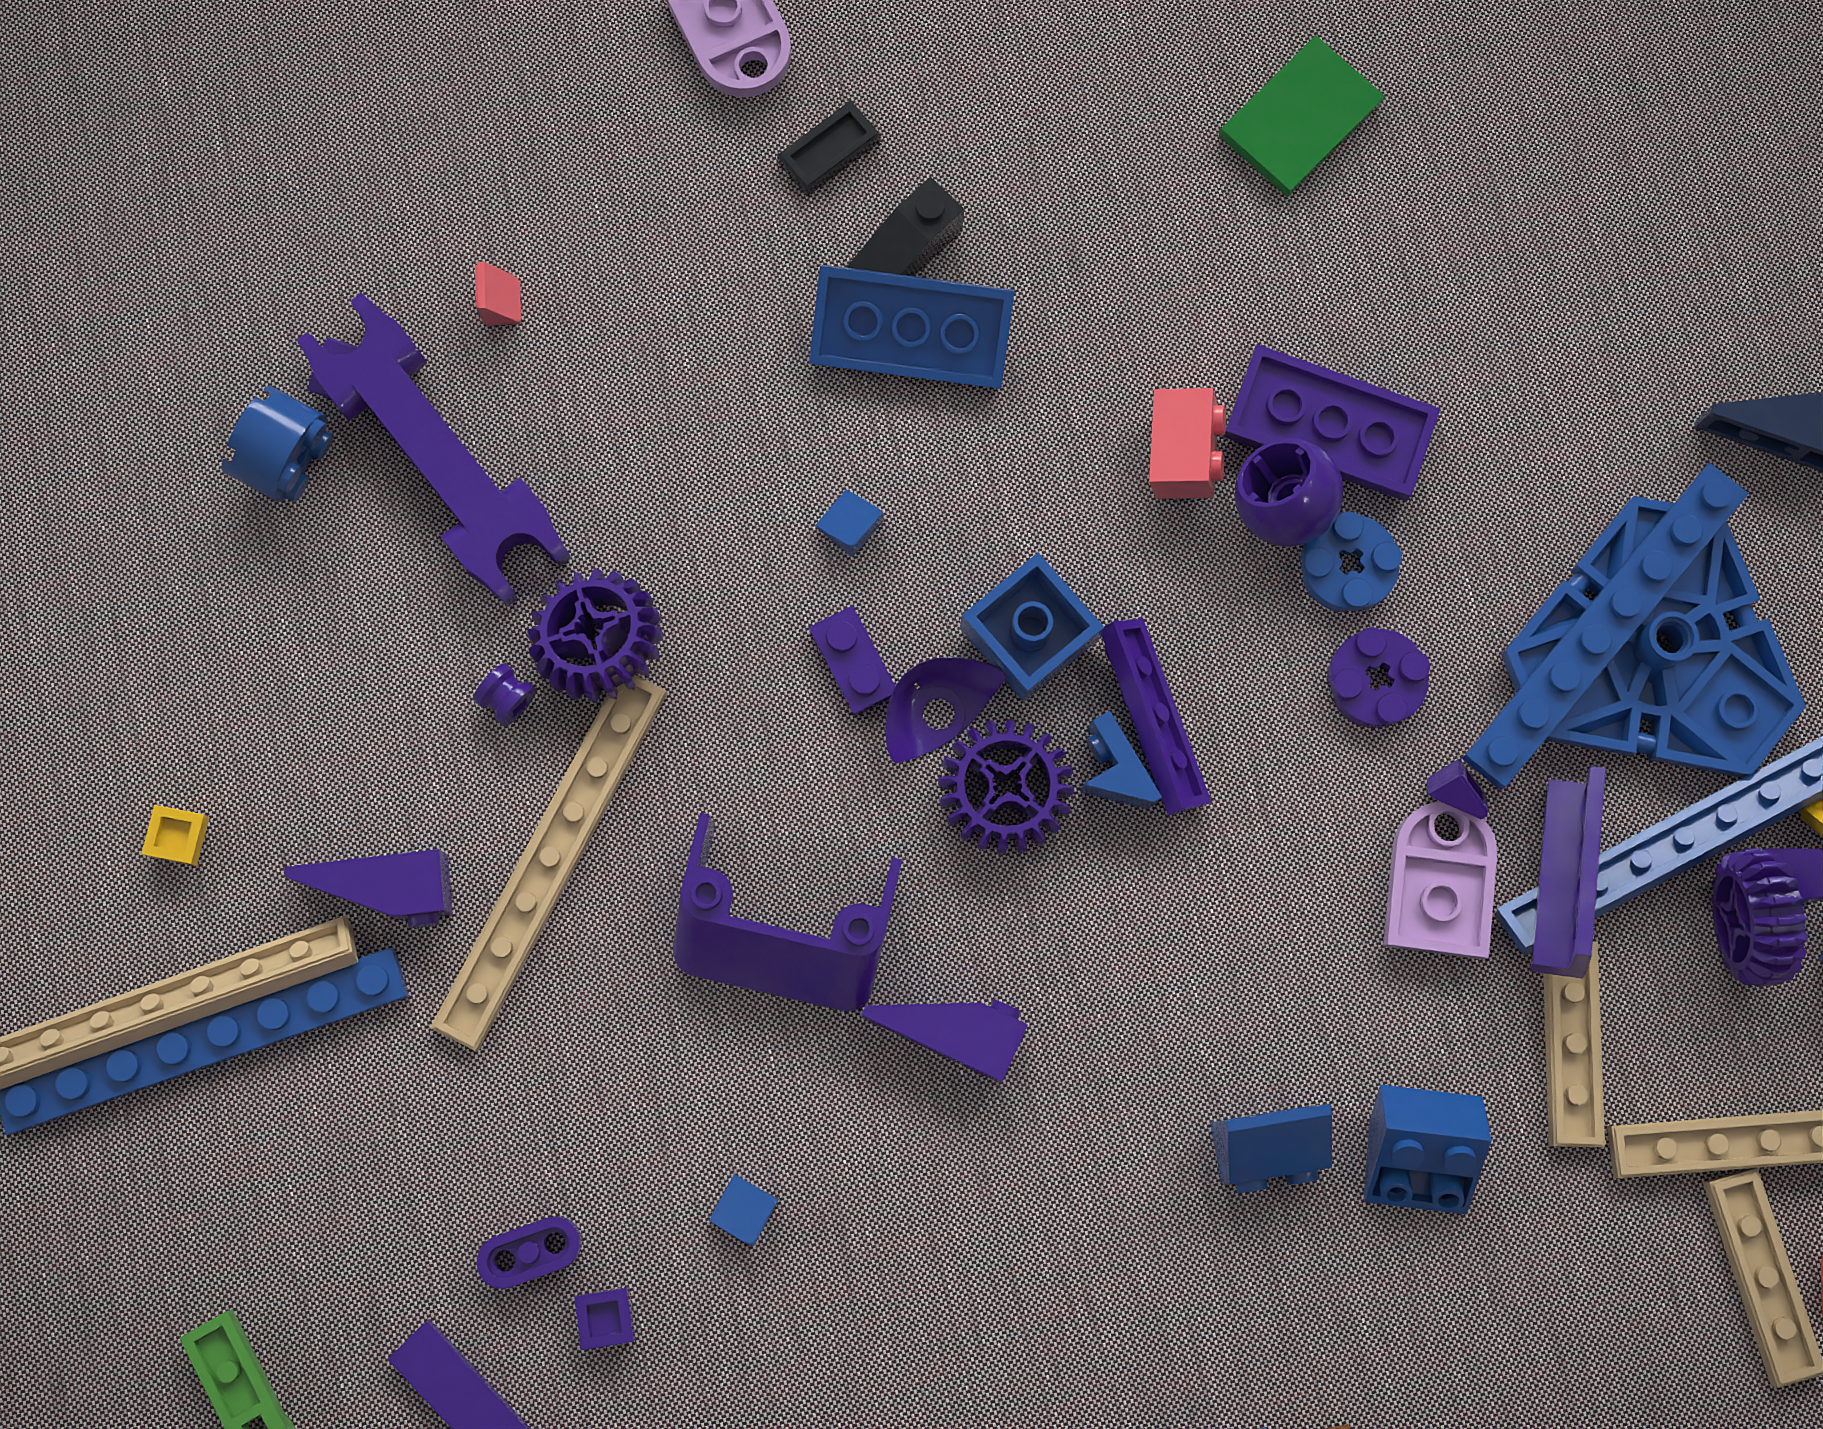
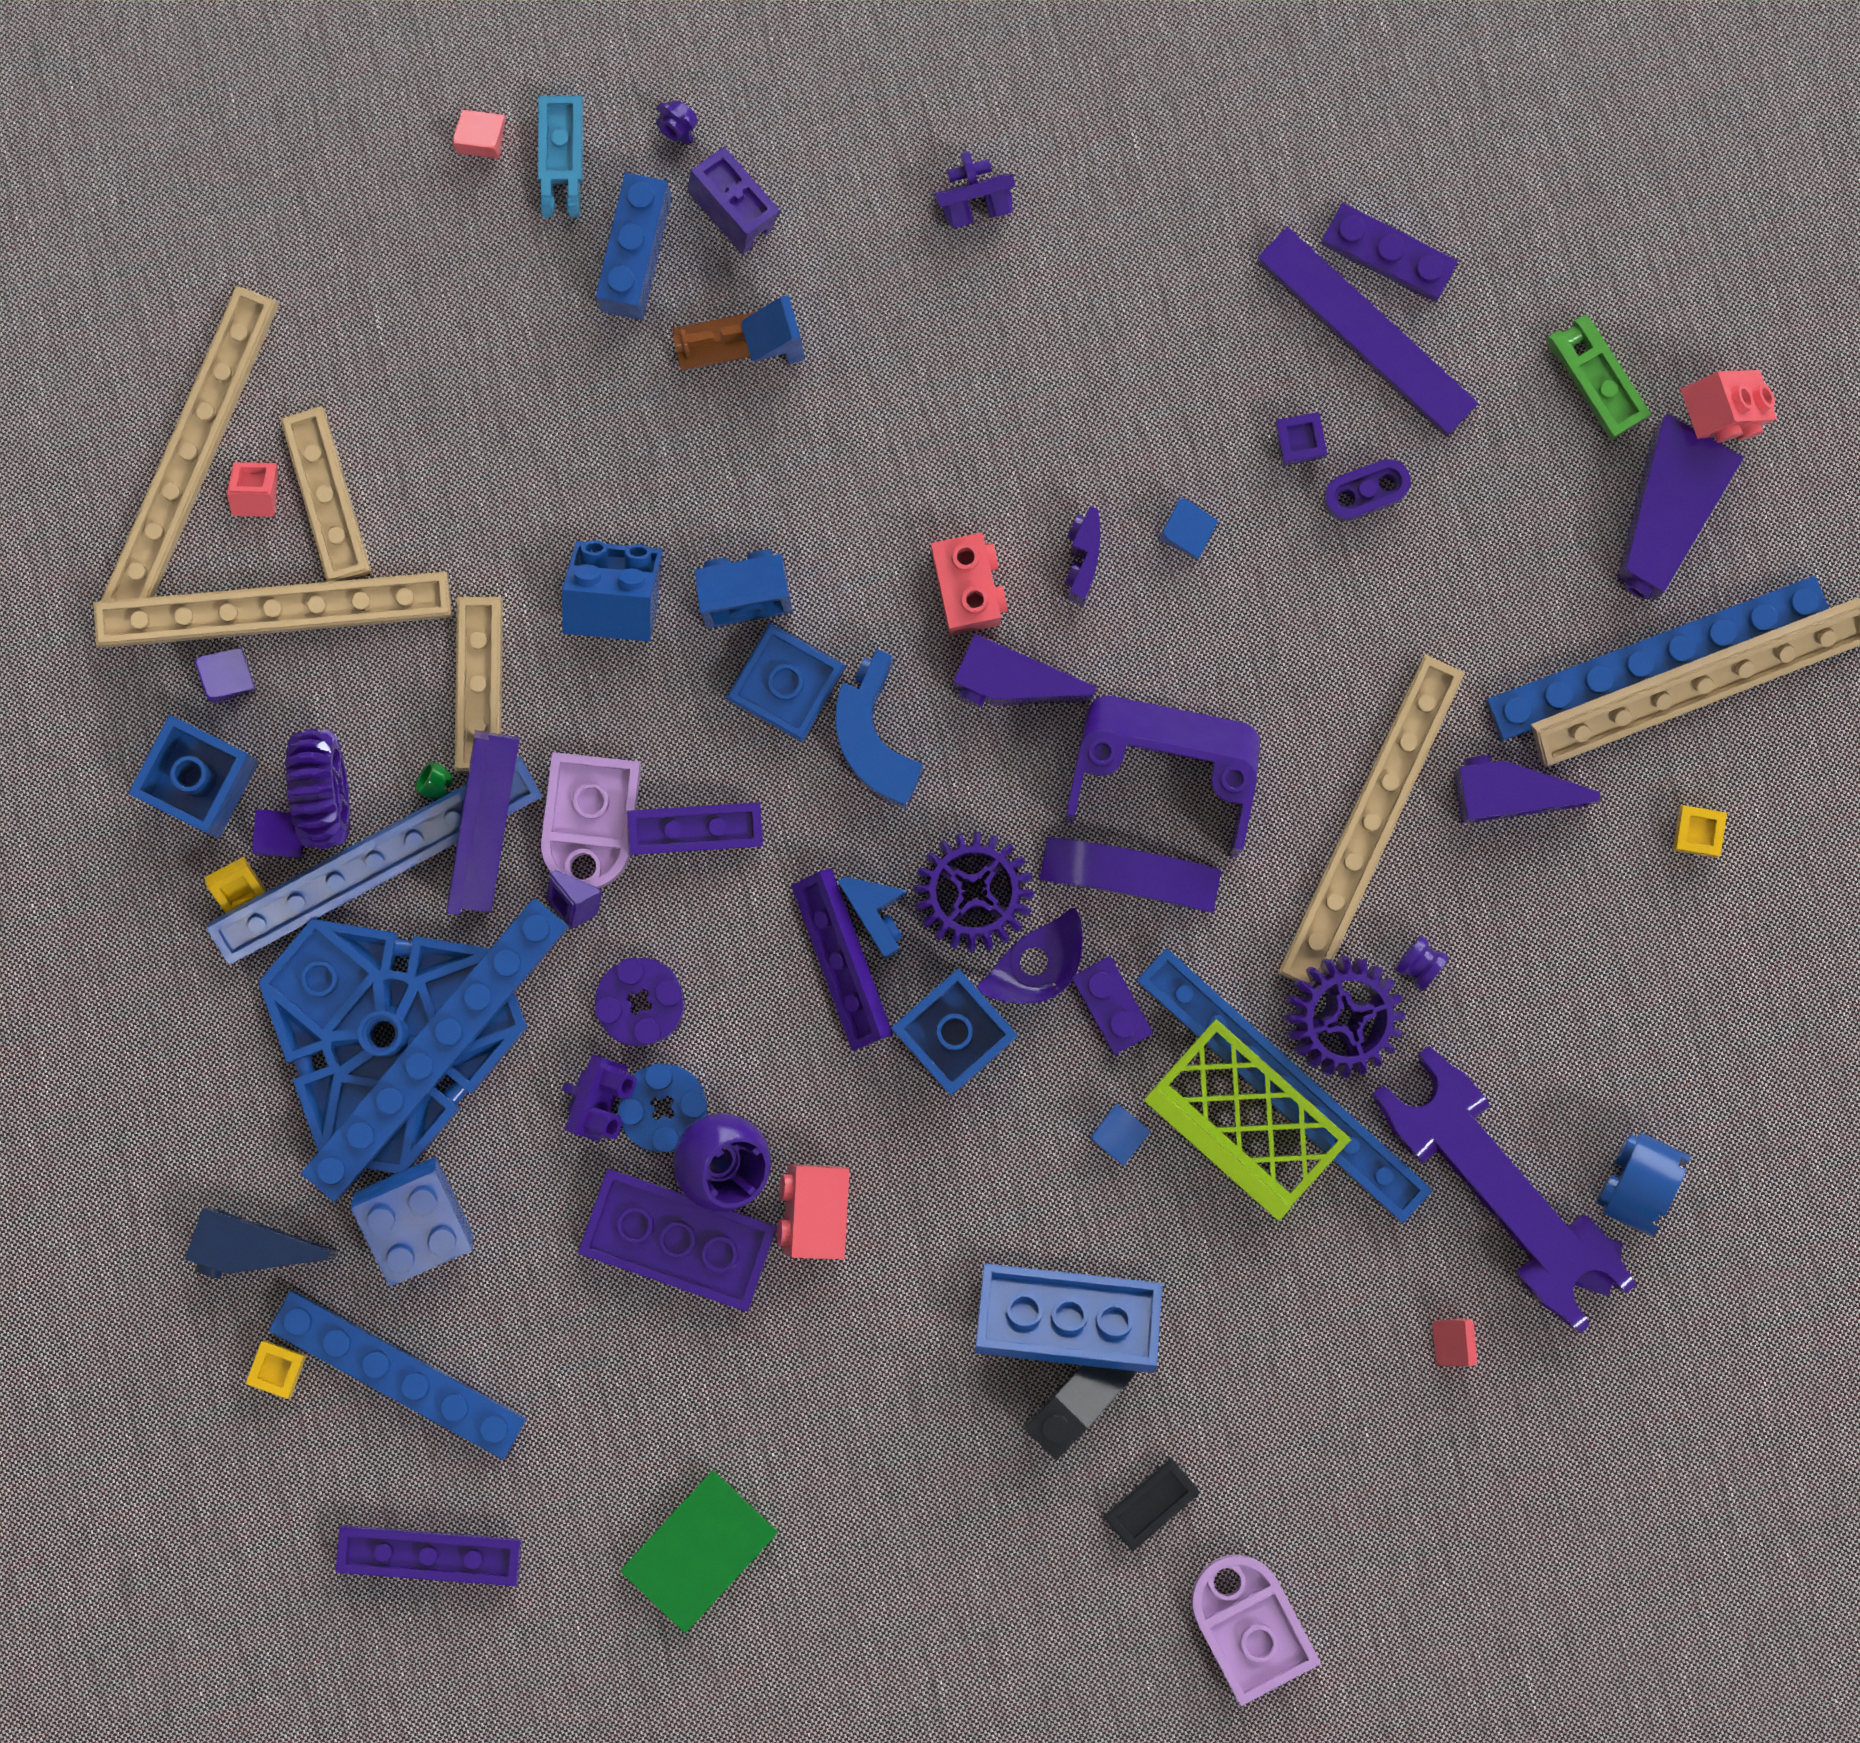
camera: 170 degrees left, 5 degrees up
(80, 1341) = (1729, 405): none -> coral brick
(163, 1227) = (1673, 503): none -> dark purple slope
(668, 568) = (1362, 1158): none -> blue plate
(736, 494) = (1220, 1148): none -> lime fence
(828, 804) = (1130, 873): none -> dark purple slope
(866, 1198) = (1085, 545): none -> dark purple slope
(1007, 1146) = (967, 583): none -> coral brick
(1131, 952) = (870, 760): none -> blue arch
(1219, 1035) = (786, 682): none -> blue plate
(1324, 865) = (694, 828): none -> dark purple plate
(1428, 570) = (595, 1097): none -> dark purple hips
(1583, 116) = (428, 1555): none -> dark purple plate
(1622, 442) = (412, 1221): none -> brick
(1622, 930) = (432, 780): none -> green hinge
(1625, 297) = (398, 1374): none -> blue plate
(1755, 302) = (276, 1369): none -> yellow plate

